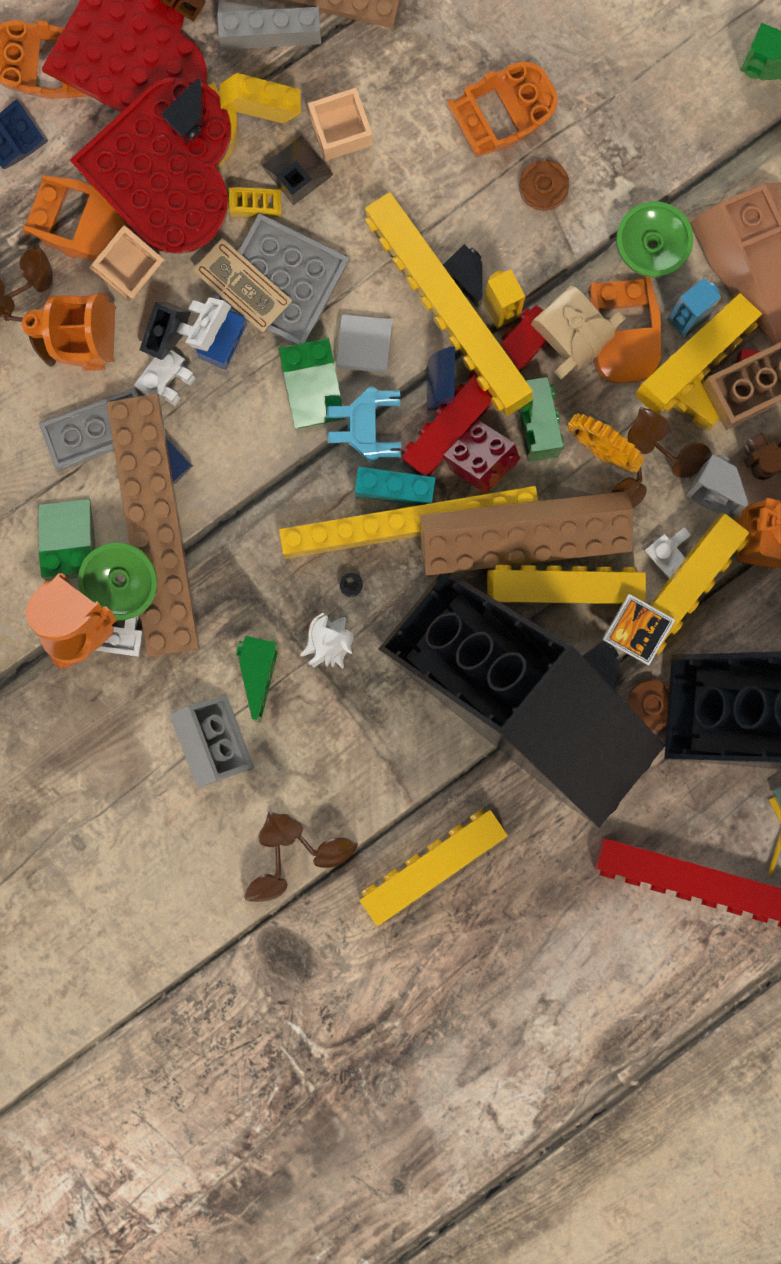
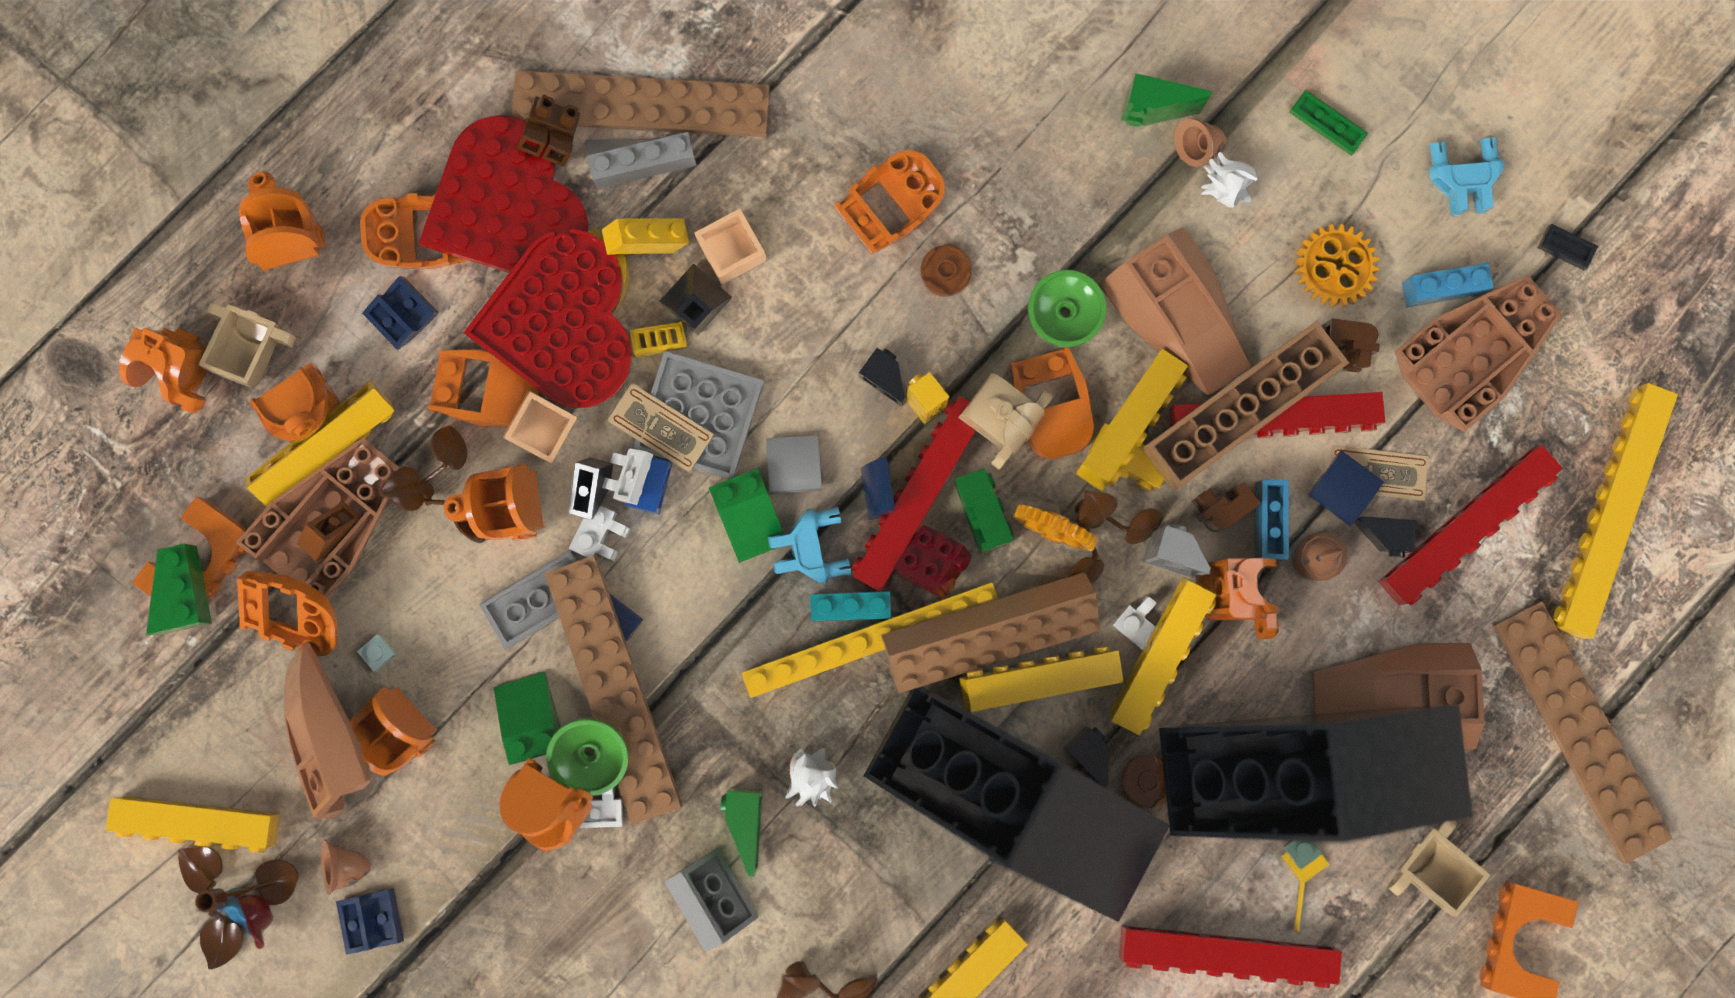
camera: 10 degrees left, 0 degrees up
(186, 113) = (574, 266): black slope -> none
(346, 591) = (820, 720): black bush -> none
(448, 304) = (872, 413): yellow brick -> none
(638, 629) = (1122, 711): tile -> none
(694, 307) = (1120, 372): dark azure brick -> none

